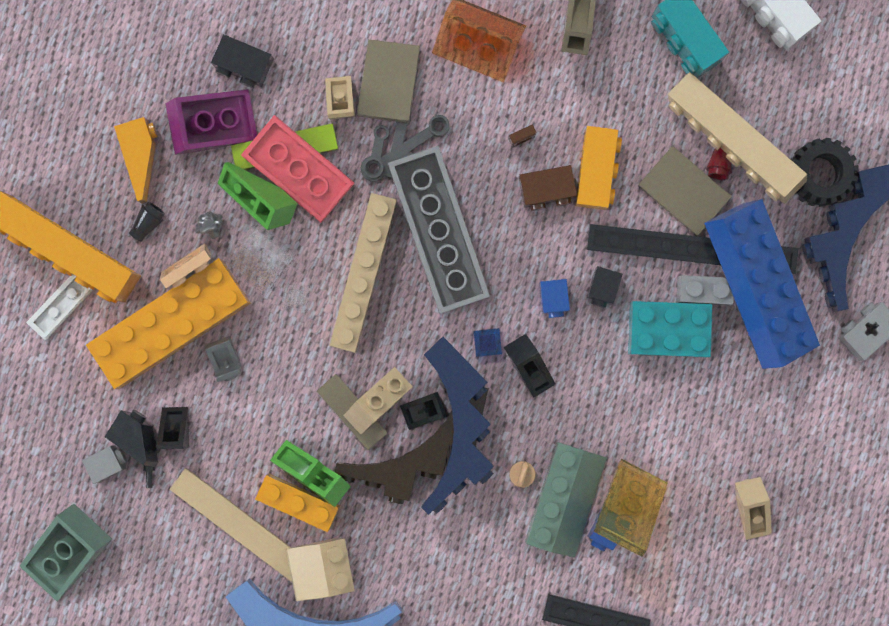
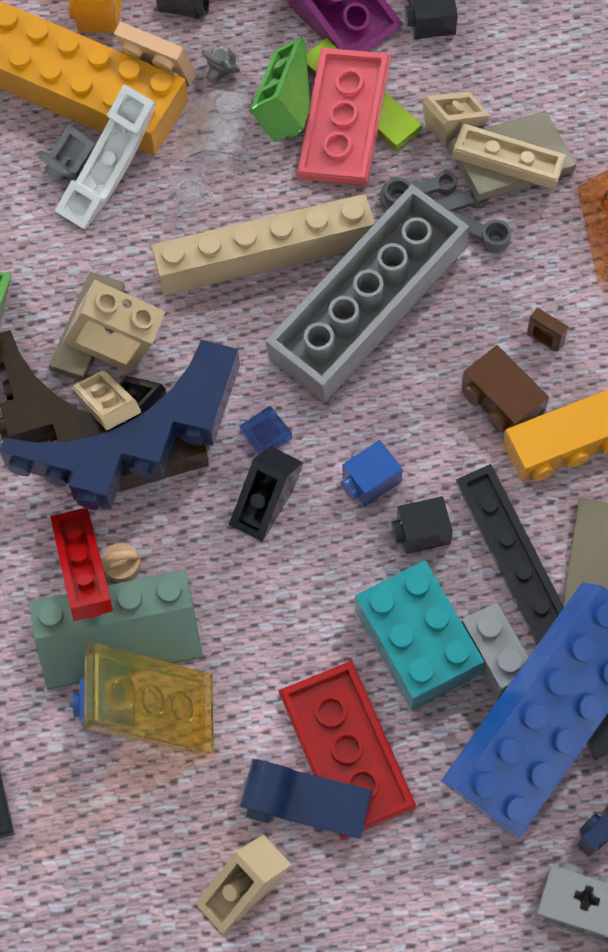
camera: 60 degrees right, 20 degrees down
(246, 339) = (109, 158): none -> white slope
(392, 85) = (508, 156): none -> tan tile
(421, 430) = (106, 399): none -> tan tile
(522, 502) = (81, 564): none -> red plate
(708, 407) = (347, 740): none -> red tile
(726, 446) = (304, 799): none -> dark blue door

